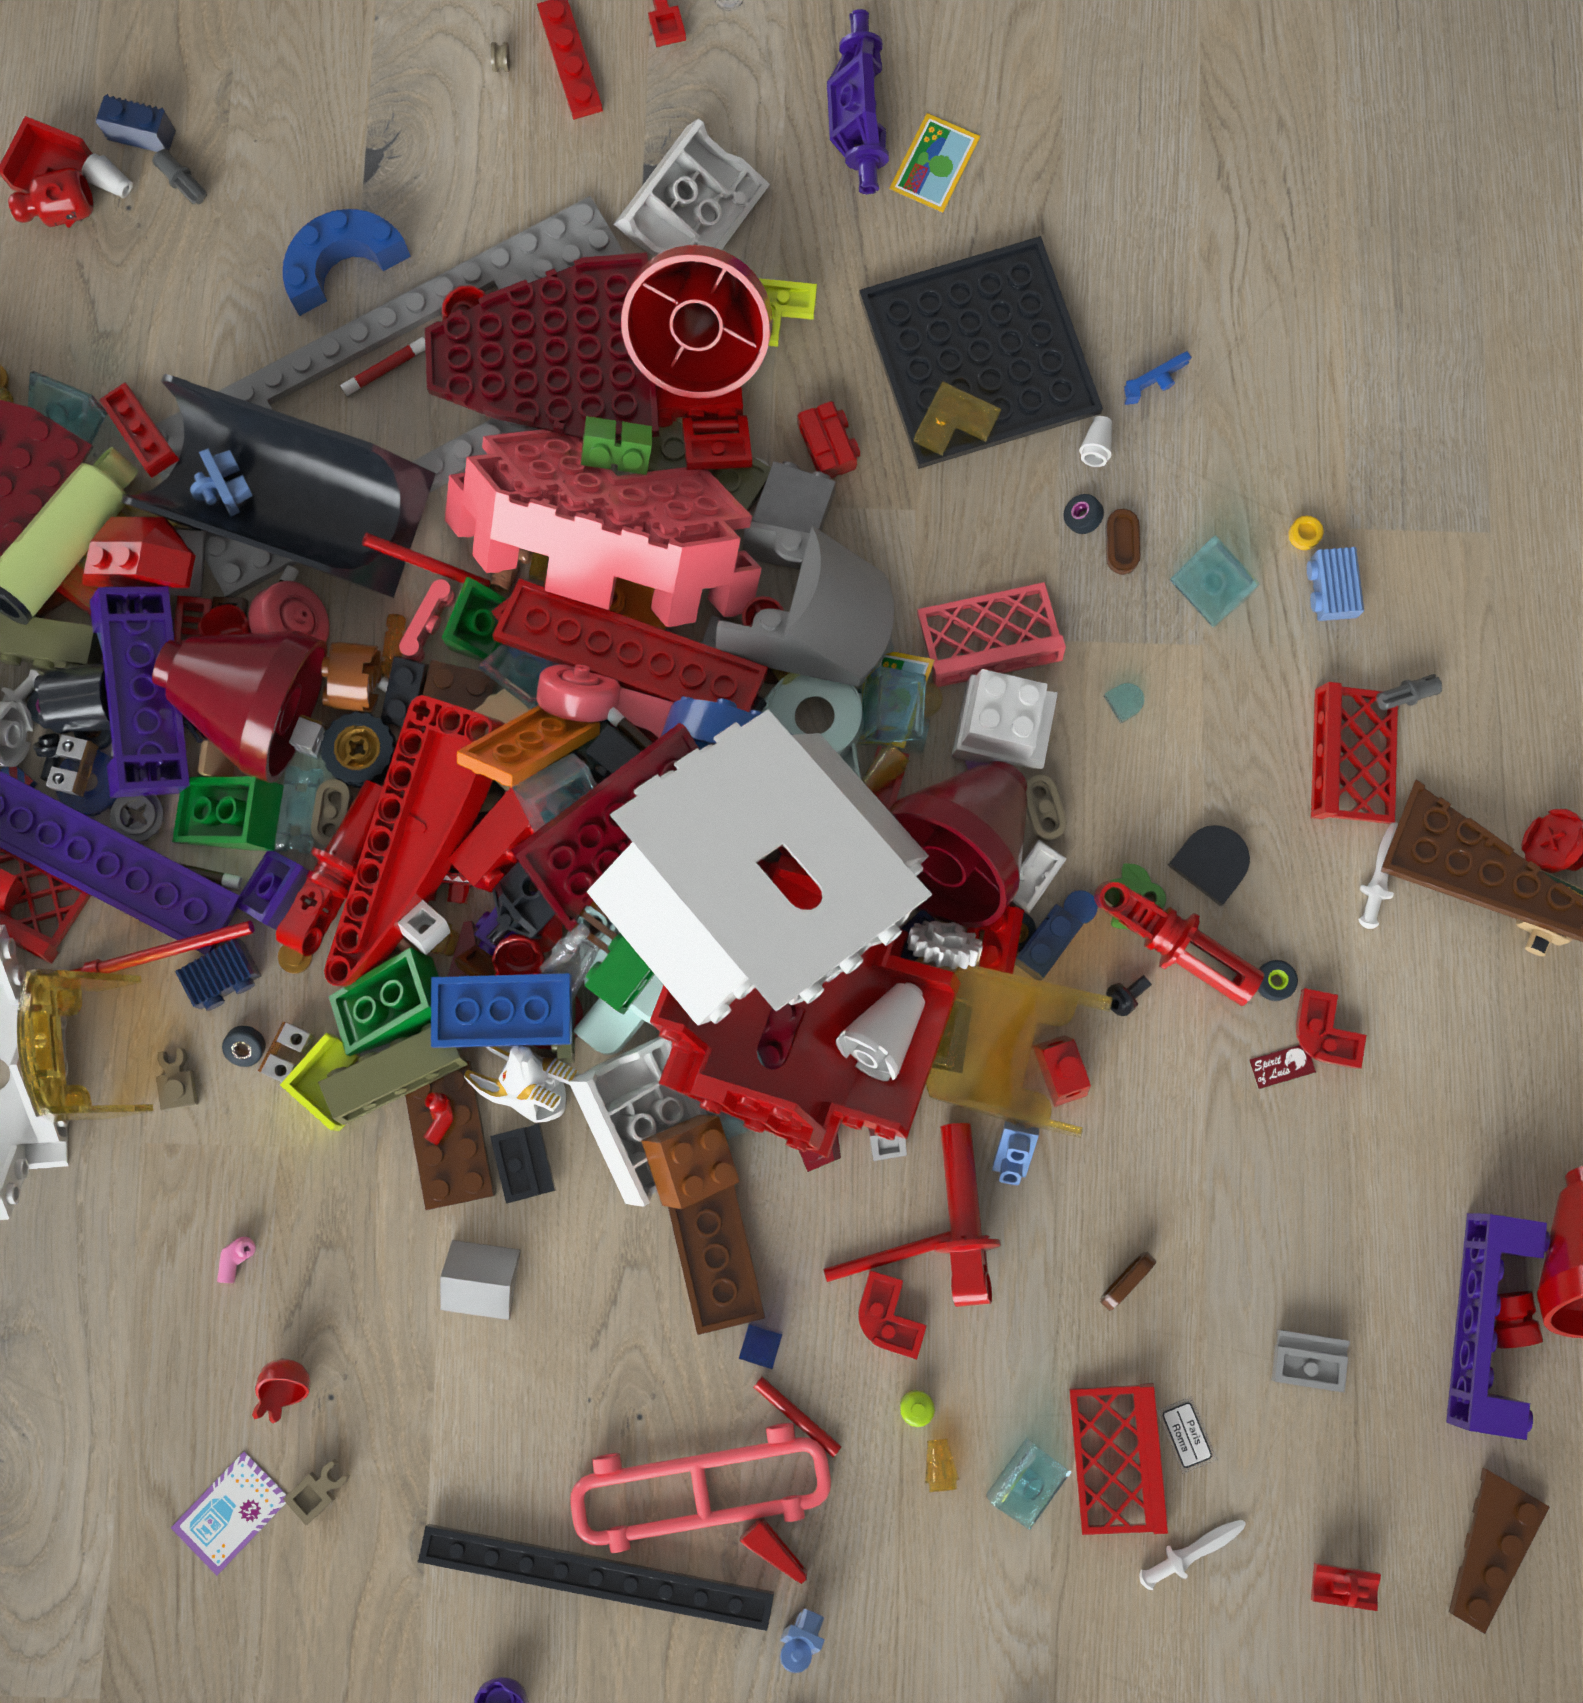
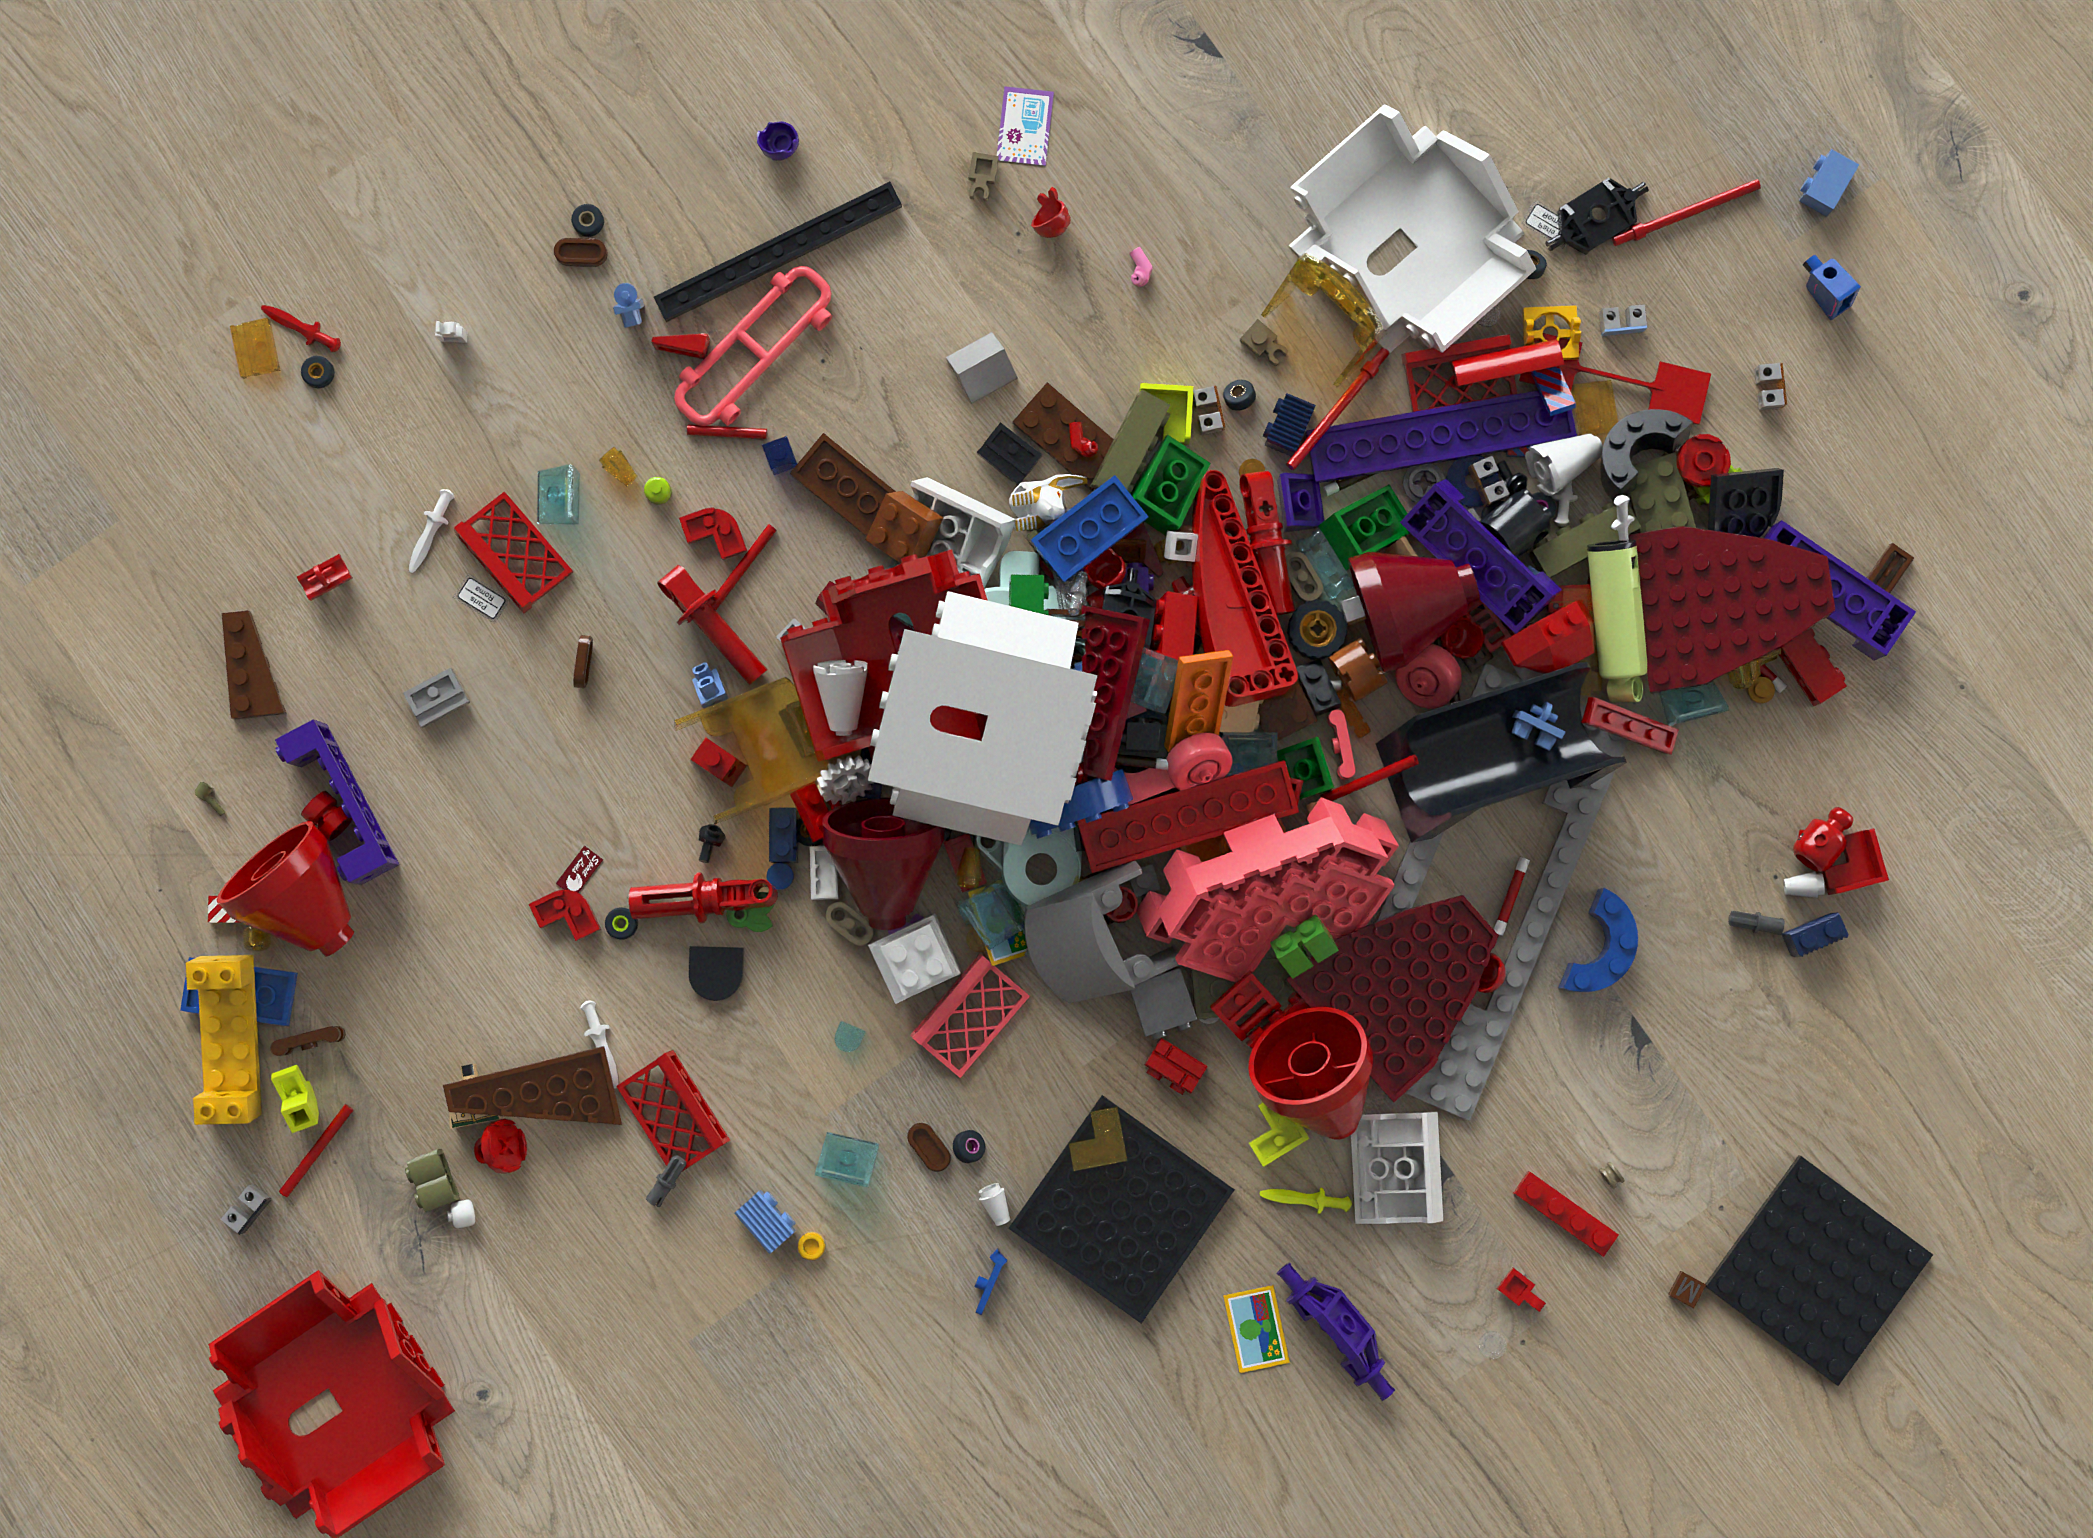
camera: 145 degrees right, 5 degrees up
(788, 229) = (1316, 1200): none -> neon yellow sword

